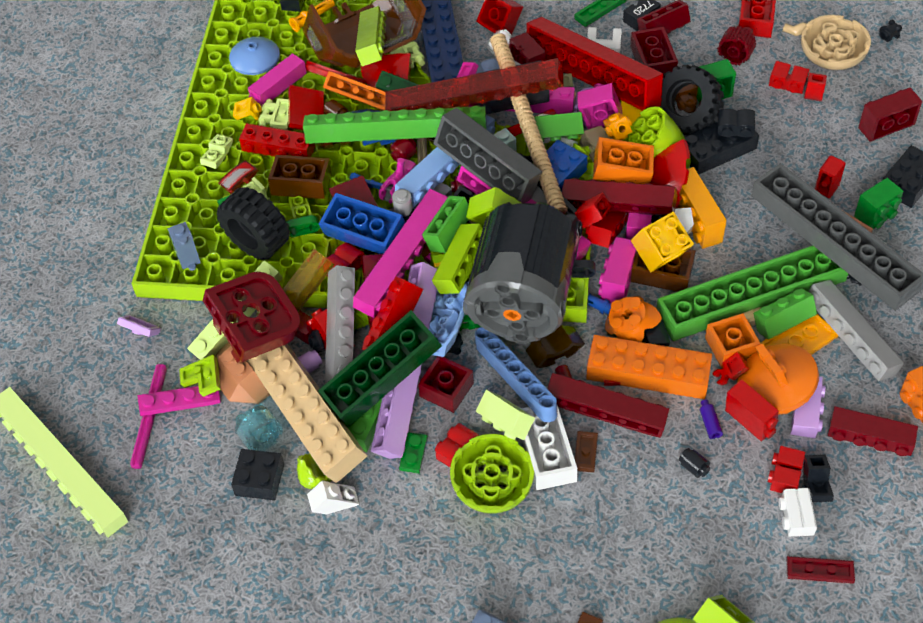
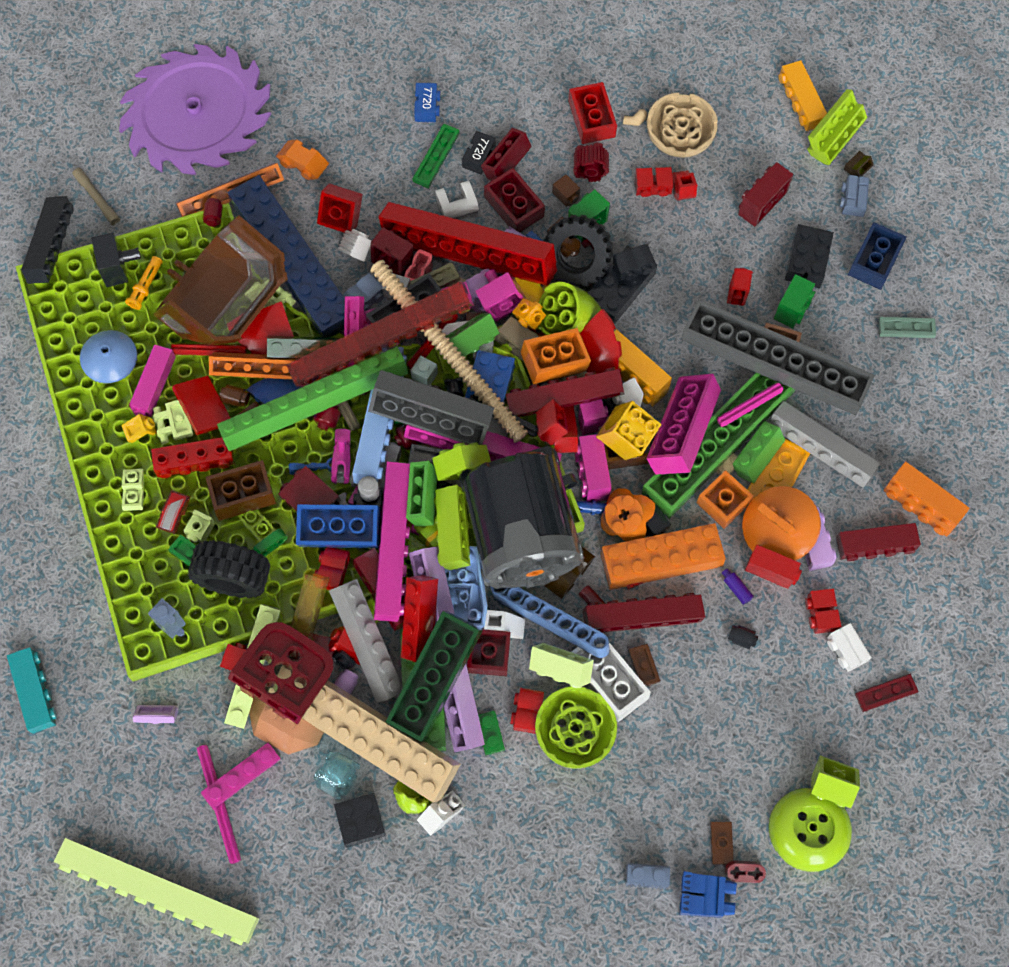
camera: 30 degrees left, 15 degrees up
(54, 271) = (31, 690): none -> teal brick
(203, 372) = (254, 739): lime plate -> none
(371, 35) = (234, 298): lime brick -> none
(481, 370) = (505, 622): none -> white slope
(703, 57) = (566, 190): none -> reddish brown brick
(719, 261) = (684, 424): none -> dark pink brick
(733, 368) = (737, 527): red plate -> none
(792, 267) = (750, 404): none -> dark pink axle
(816, 478) = (852, 611): black brick -> none
(888, 32) = (725, 91): black brick -> none

